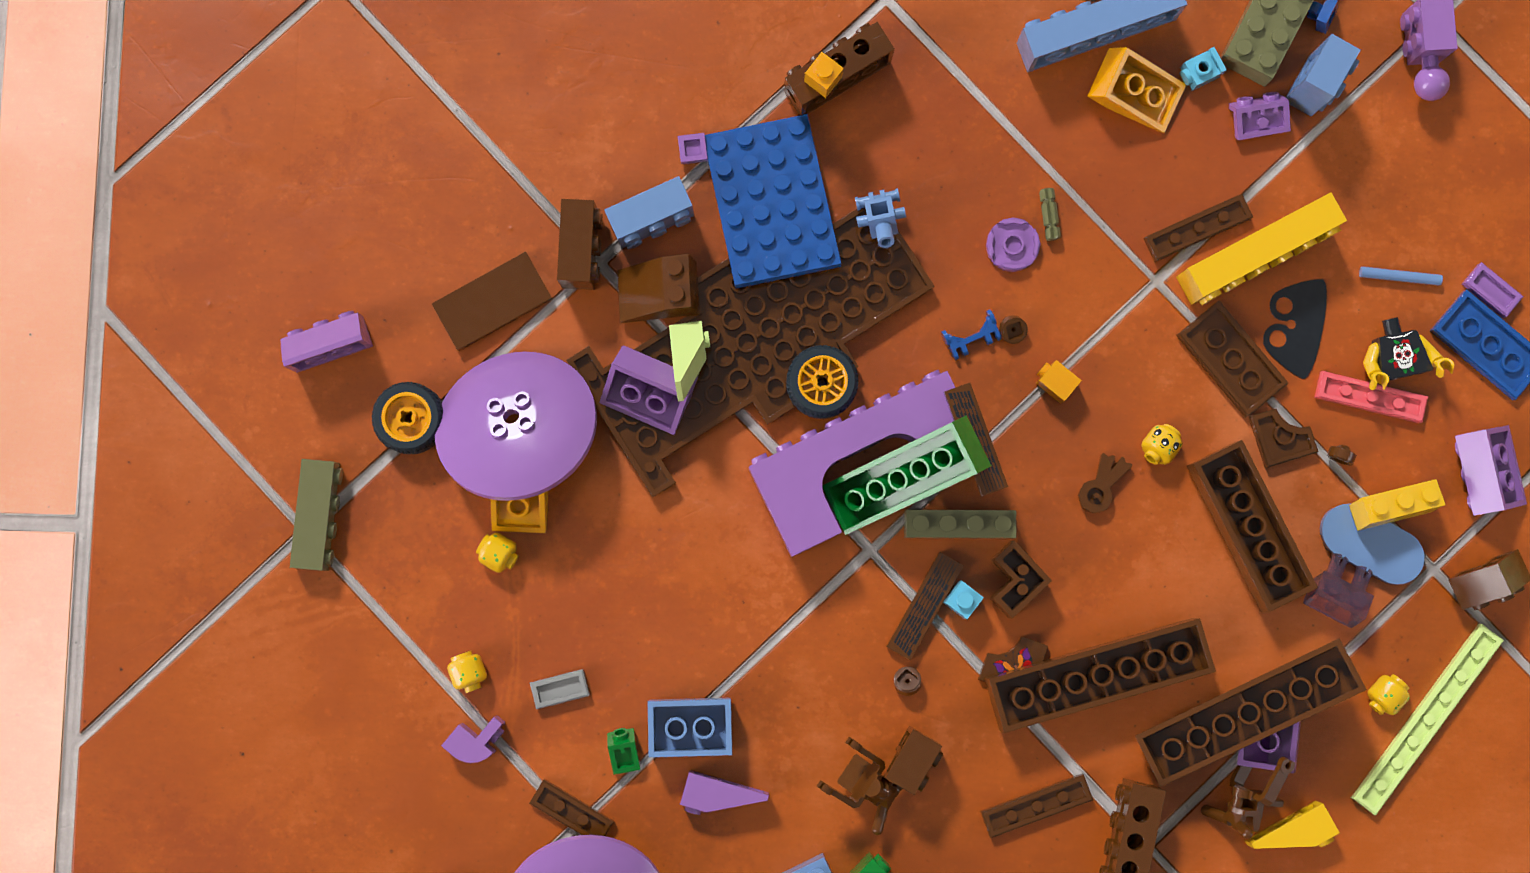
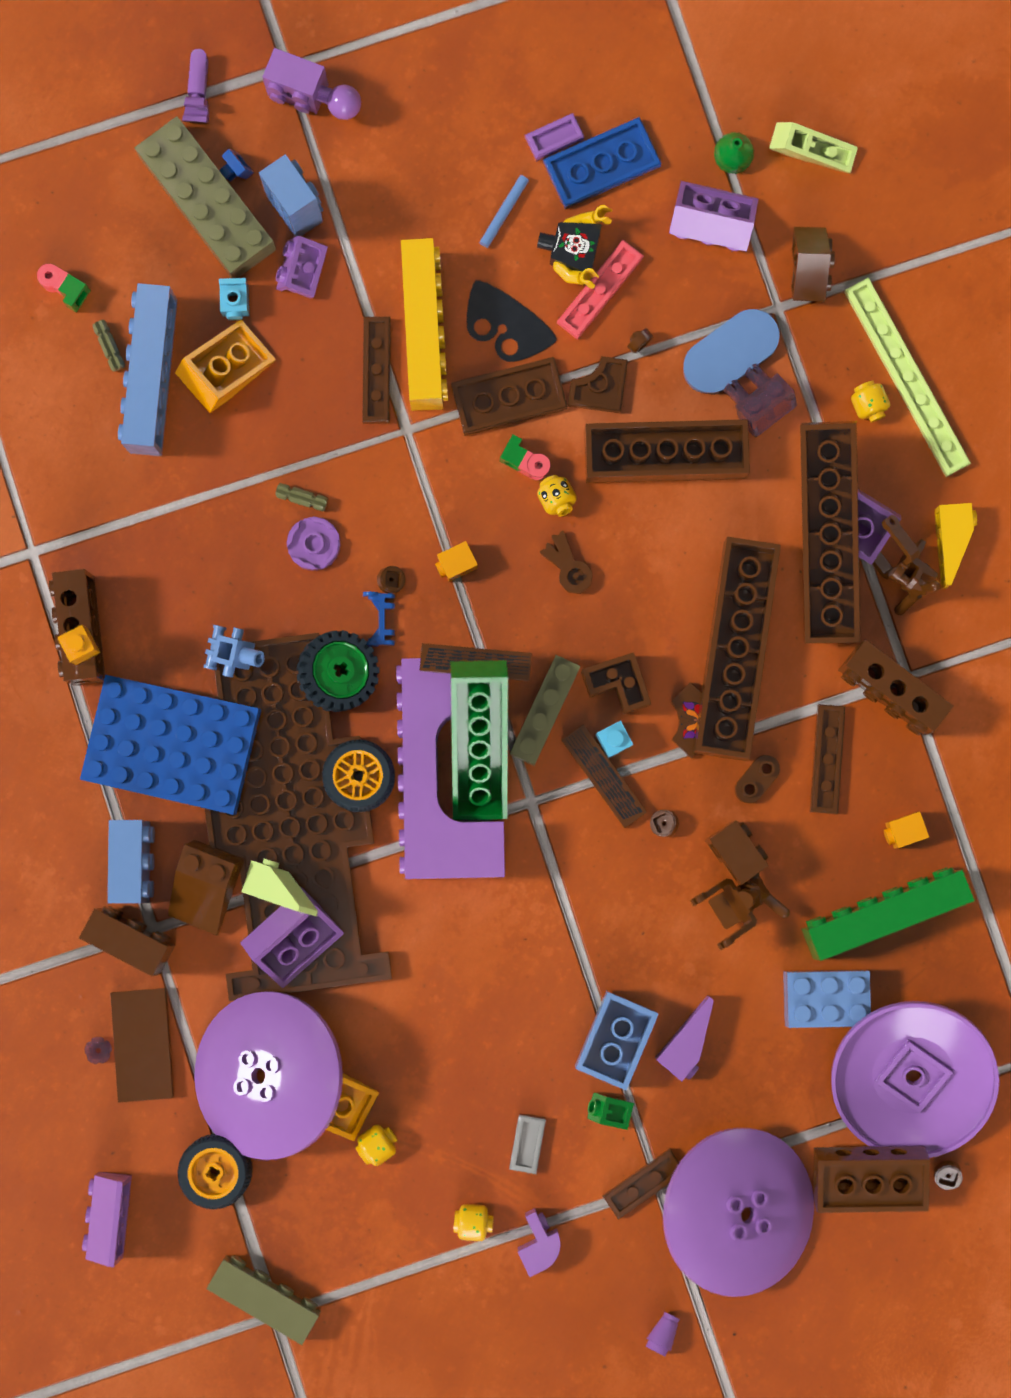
camera: 65 degrees left, 0 degrees up
(469, 257) = (92, 1055): none -> plate
(692, 148) = (87, 794): medium lavender plate -> none
(916, 337) = (318, 673): none -> wheel
(988, 748) = (757, 778): none -> reddish brown plate
(1179, 393) = (532, 465): none -> leg
(1397, 504) = (706, 314): yellow brick -> none

